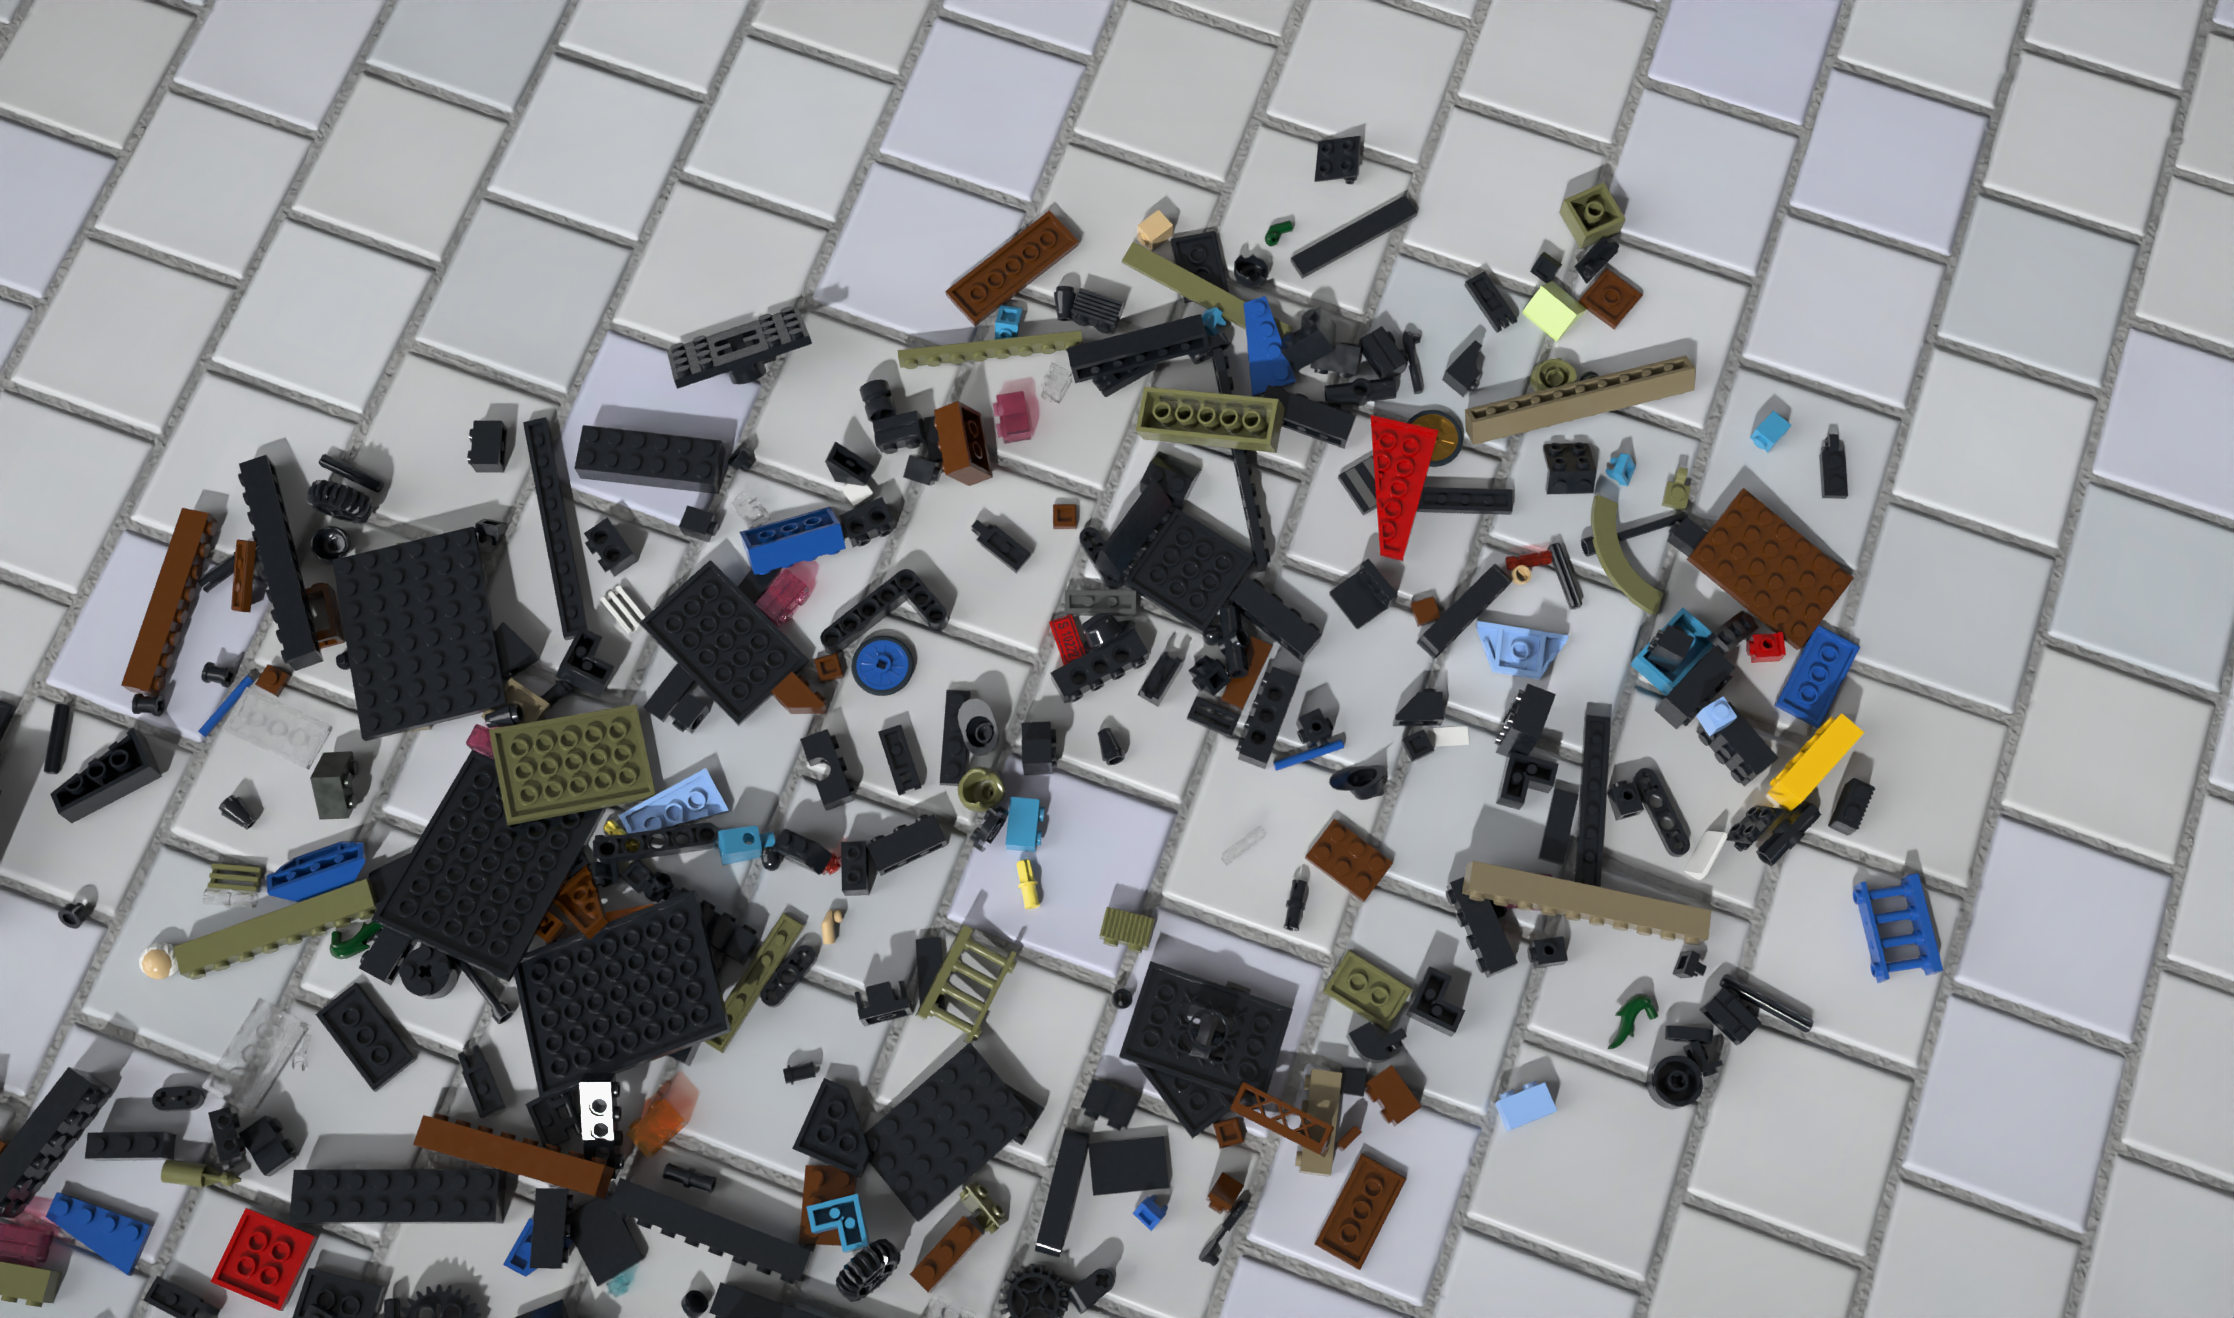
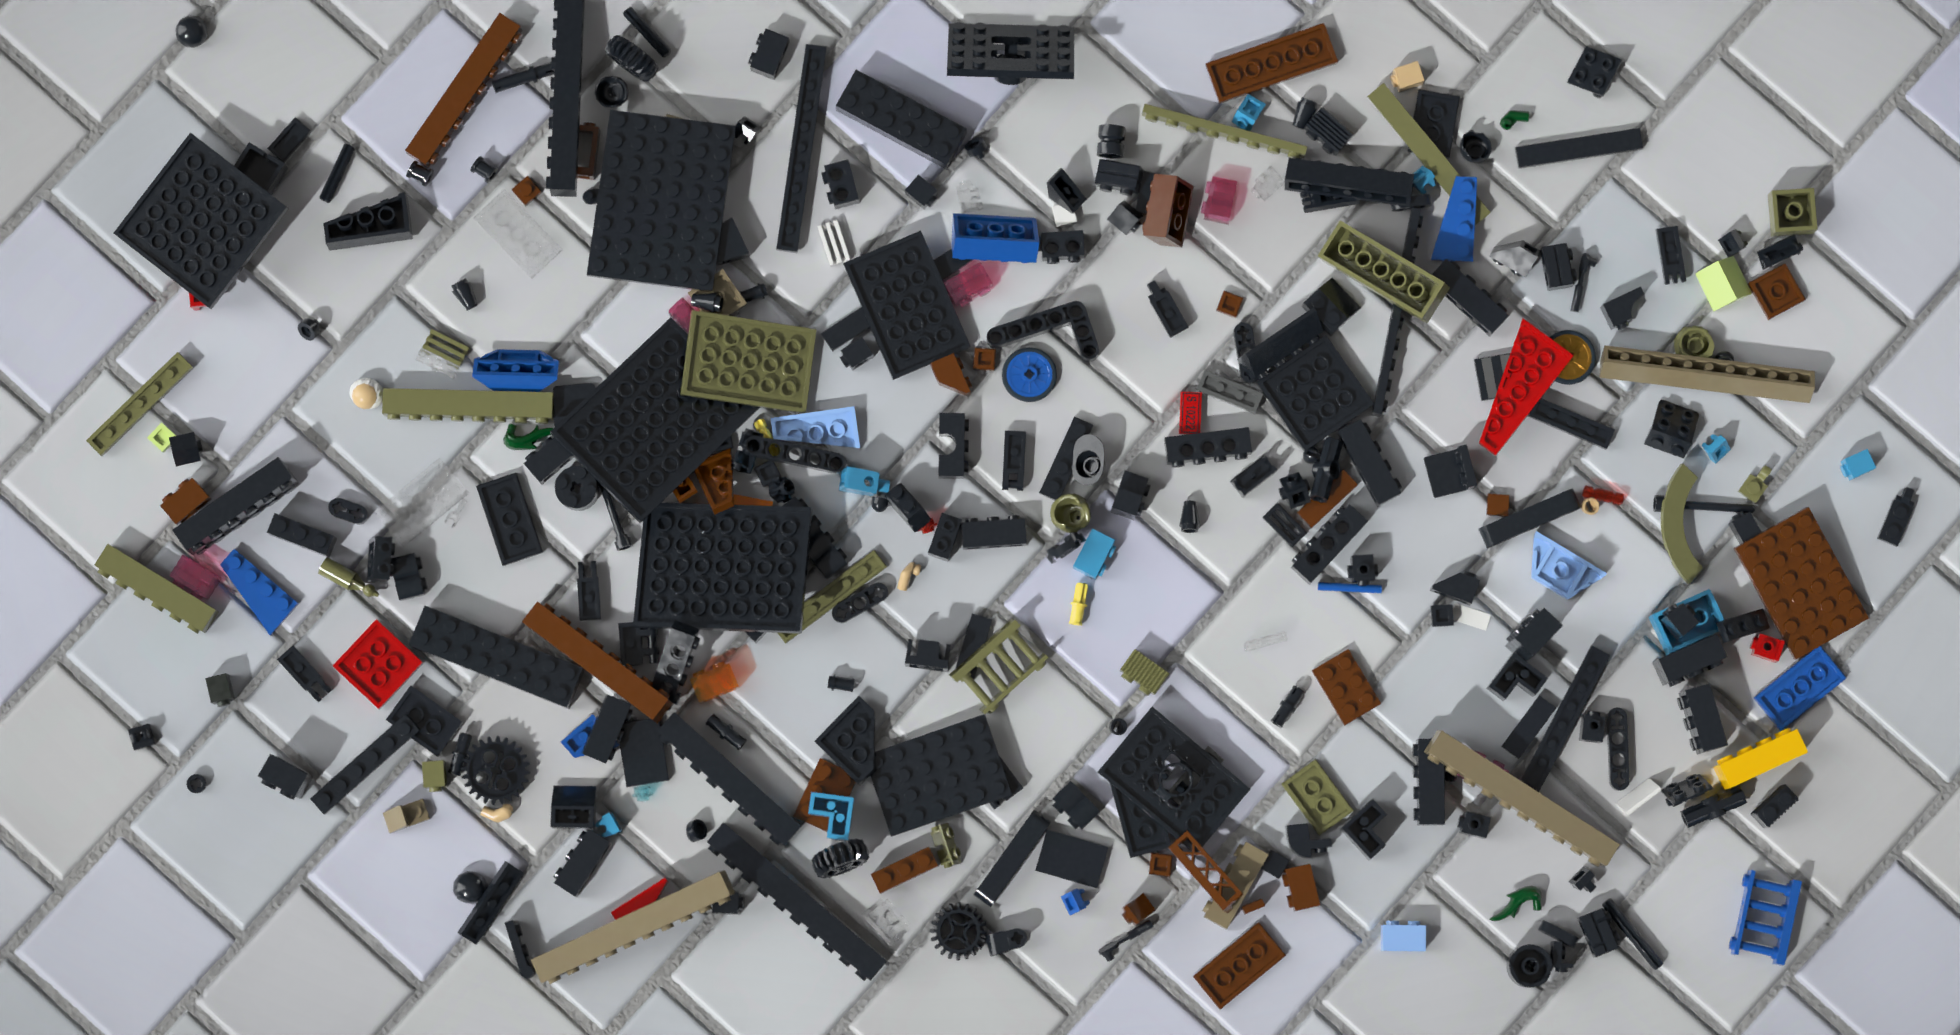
camera: 20 degrees right, 10 degrees up
(225, 706) = (481, 198): blue bar -> none
(243, 575) = (532, 93): reddish brown tile -> none
(333, 784) = (551, 302): pearl dark grey brick -> none
(581, 667) = (782, 279): black brick -> none
(1104, 628) = (1224, 418): black piece -> none
(1311, 341) = (1500, 233): black brick -> none
(1360, 781) = (1382, 626): black piece -> none
(1374, 390) = (1537, 295): black piece -> none
(1565, 576) = (1627, 521): black axle -> none
(1716, 716) = (1690, 692): light blue brick -> none

